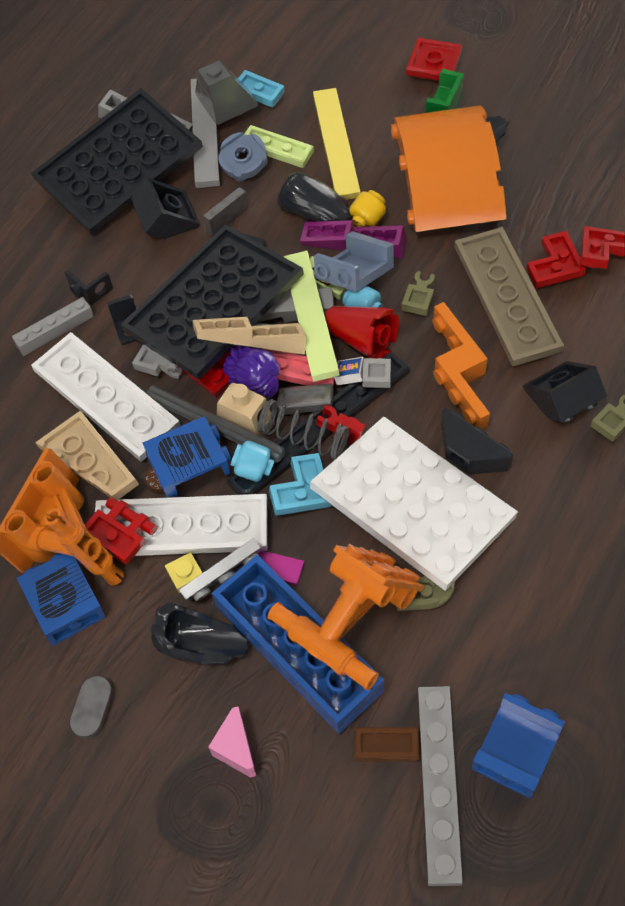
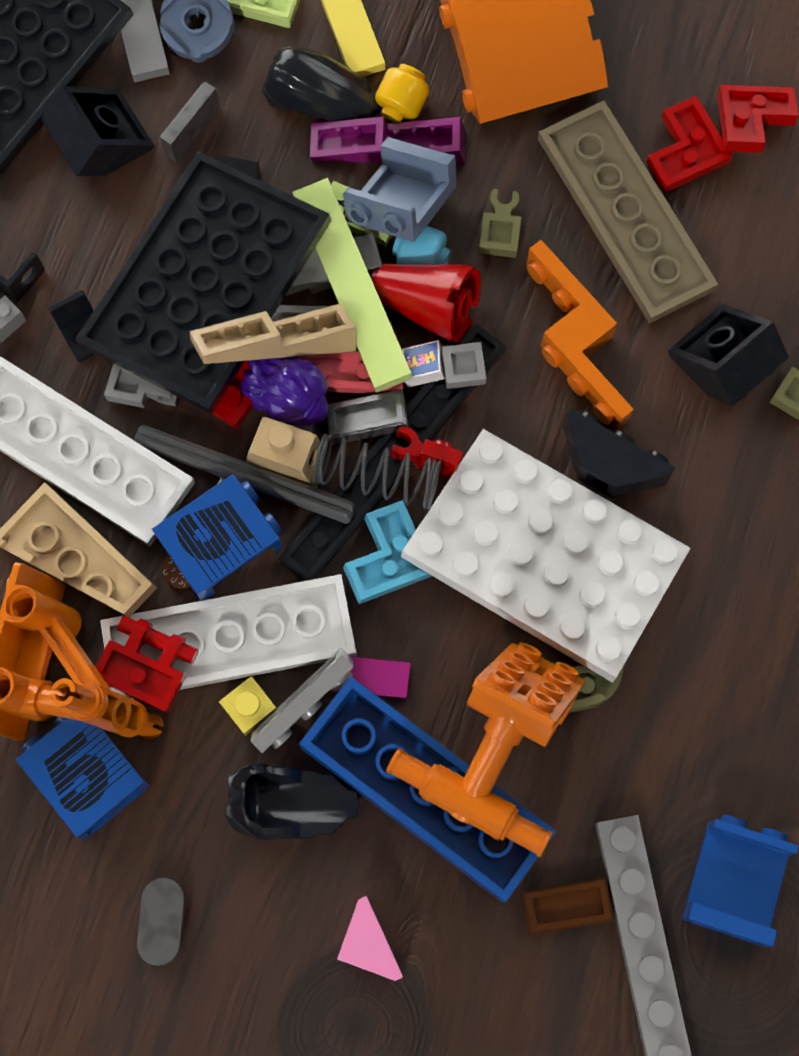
camera: 15 degrees left, 15 degrees up
(252, 461) = (313, 530): medium azure head -> none

